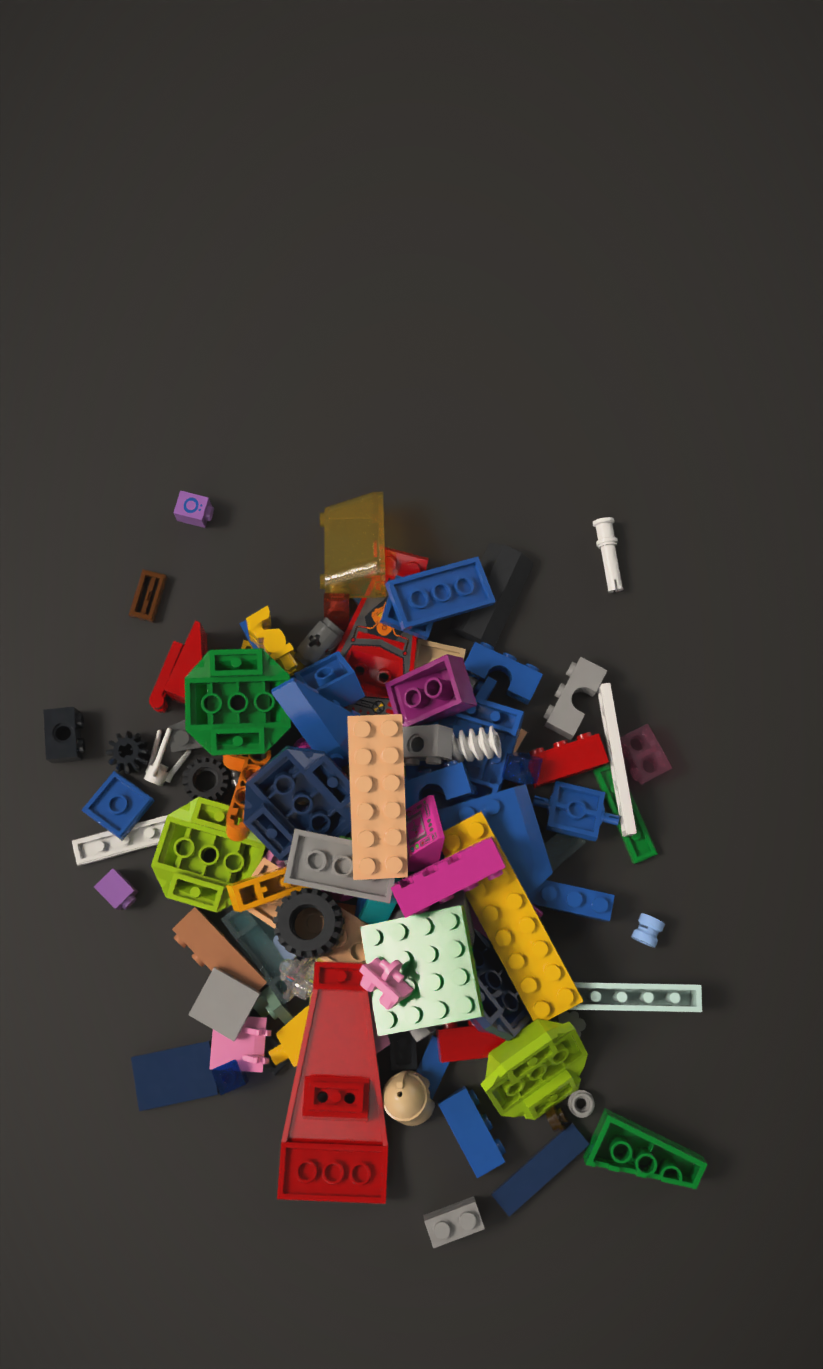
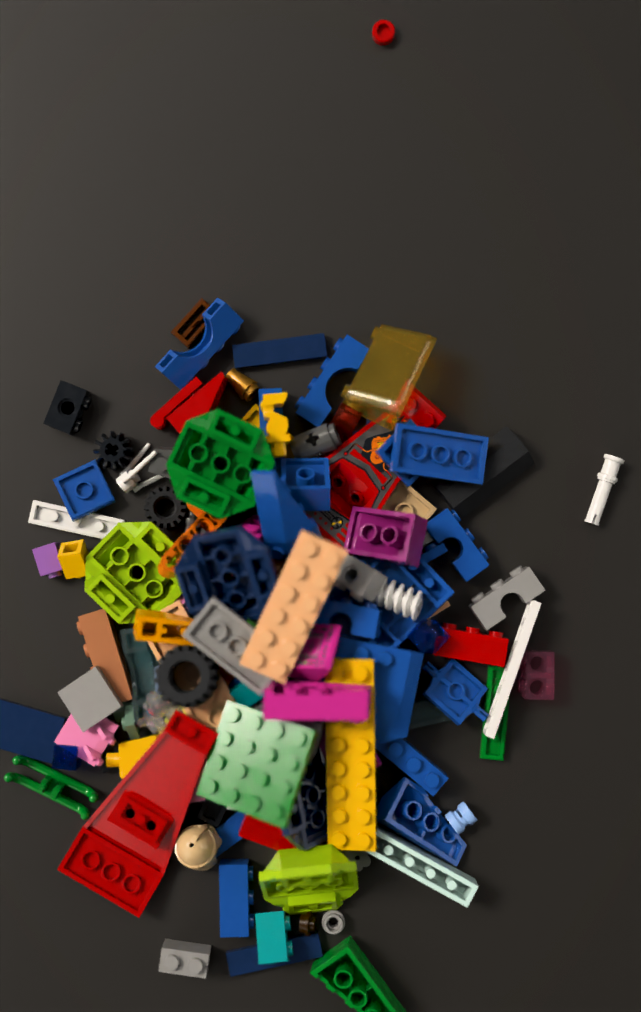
camera: 30 degrees right, 10 degrees up
(140, 875) = (73, 558): none -> yellow brick
(172, 582) = (220, 324): none -> blue arch
(192, 258) = (383, 32): none -> red tile
(193, 509) = (270, 267): medium lavender brick -> none
(224, 629) = (242, 384): none -> pearl gold cone
(229, 1116) = (52, 785): none -> green piece
(241, 581) = (279, 351): none -> dark blue tile
(308, 555) = (348, 357): none -> blue arch
(387, 979) = (224, 758): bright pink hips -> none
(529, 1149) = (273, 937): none -> teal brick
(602, 954) = (413, 816): none -> blue wedge

